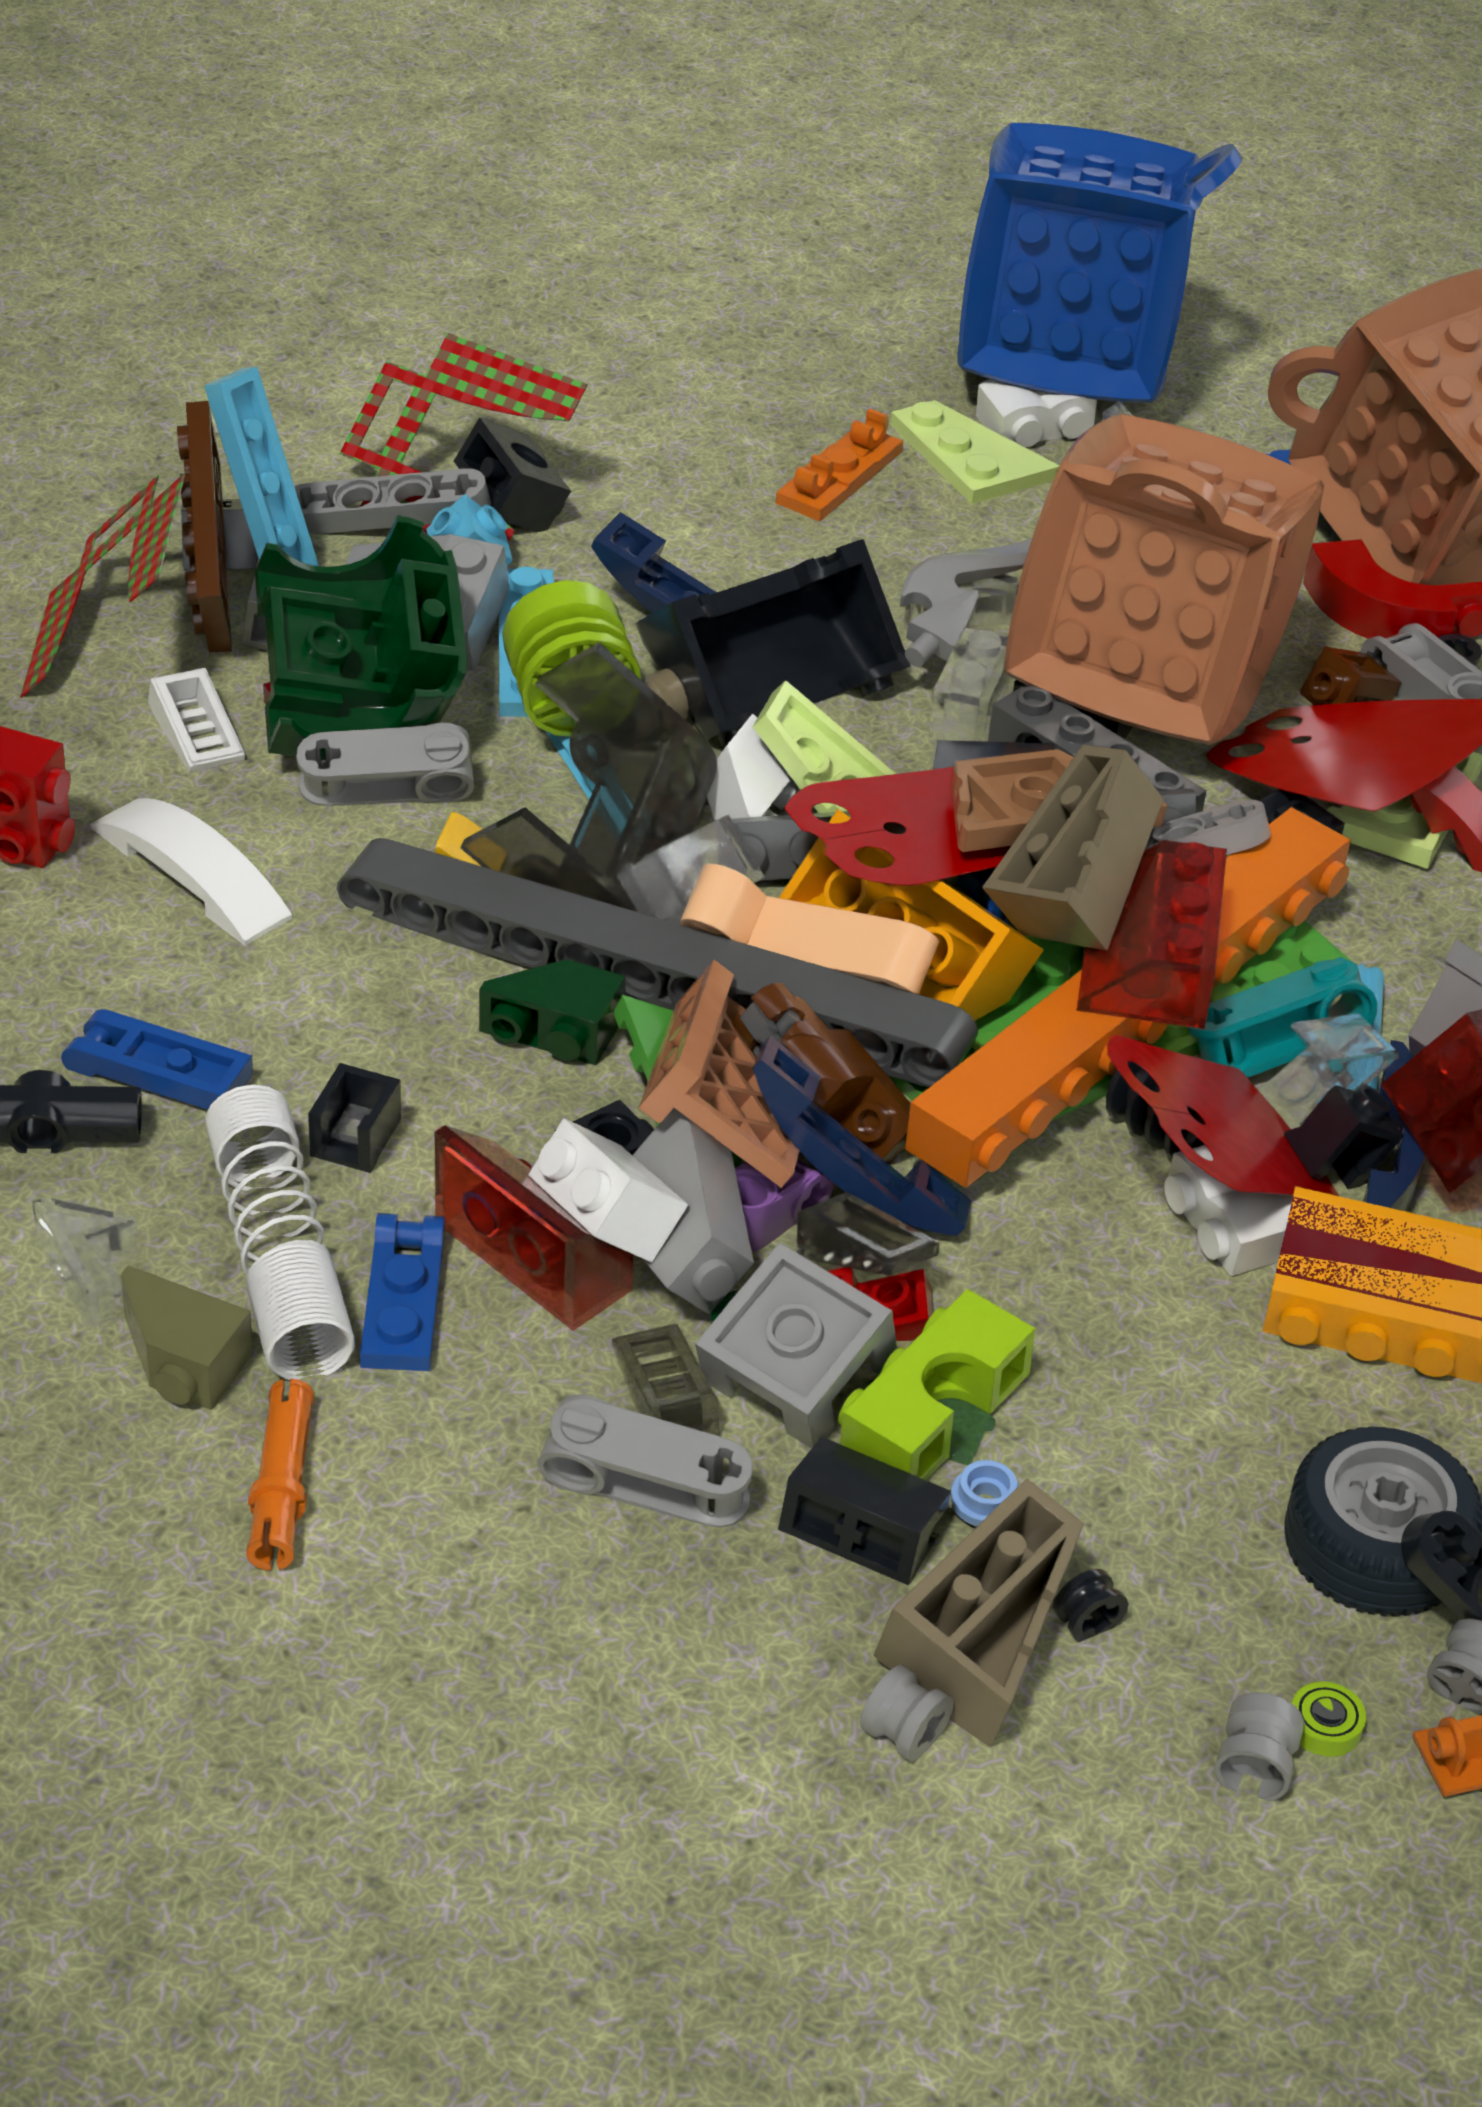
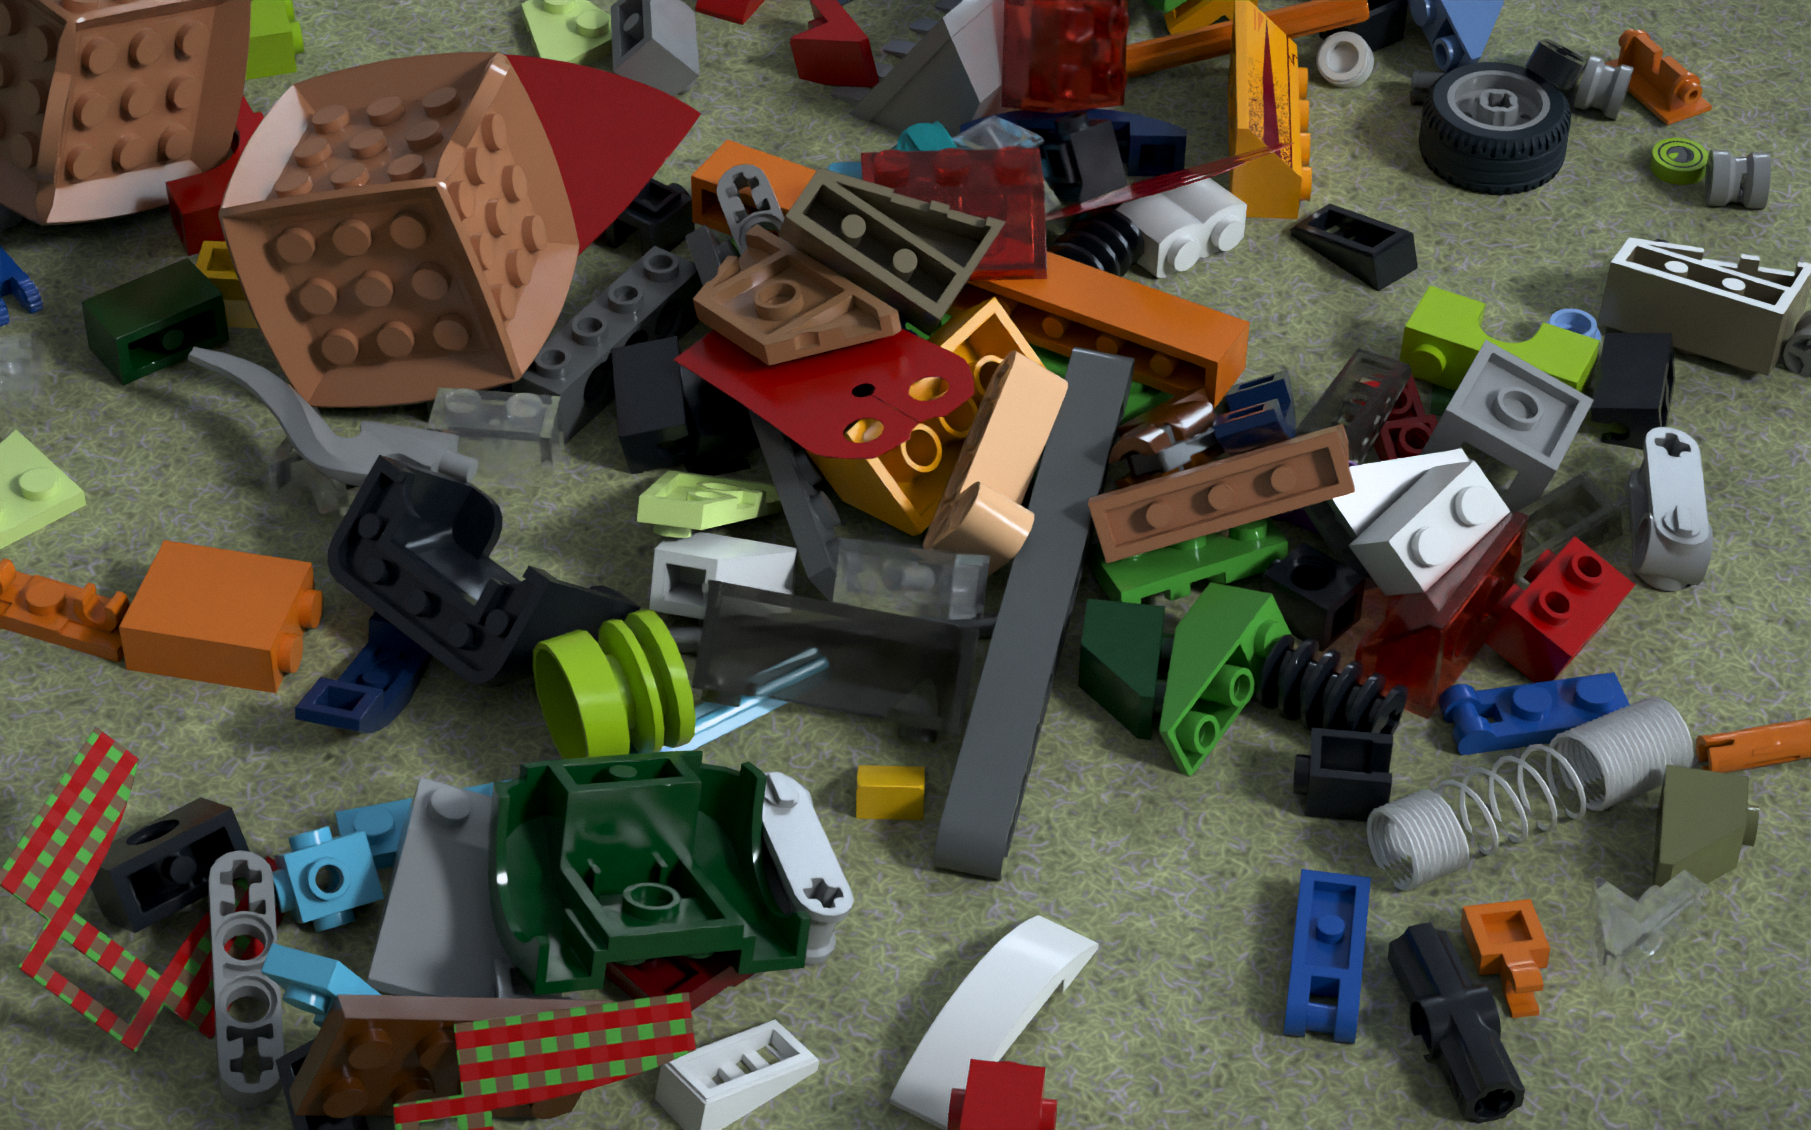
camera: 100 degrees left, 0 degrees up
(109, 1176) = (1508, 942): none -> orange plate
(484, 1105) = (1324, 696): none -> black piece
(510, 1315) = (1558, 611): none -> red brick
(520, 1057) = (1216, 668): none -> bright green slope
(785, 523) = (221, 616): none -> orange brick
(1164, 1381) = (1375, 255): none -> black slope

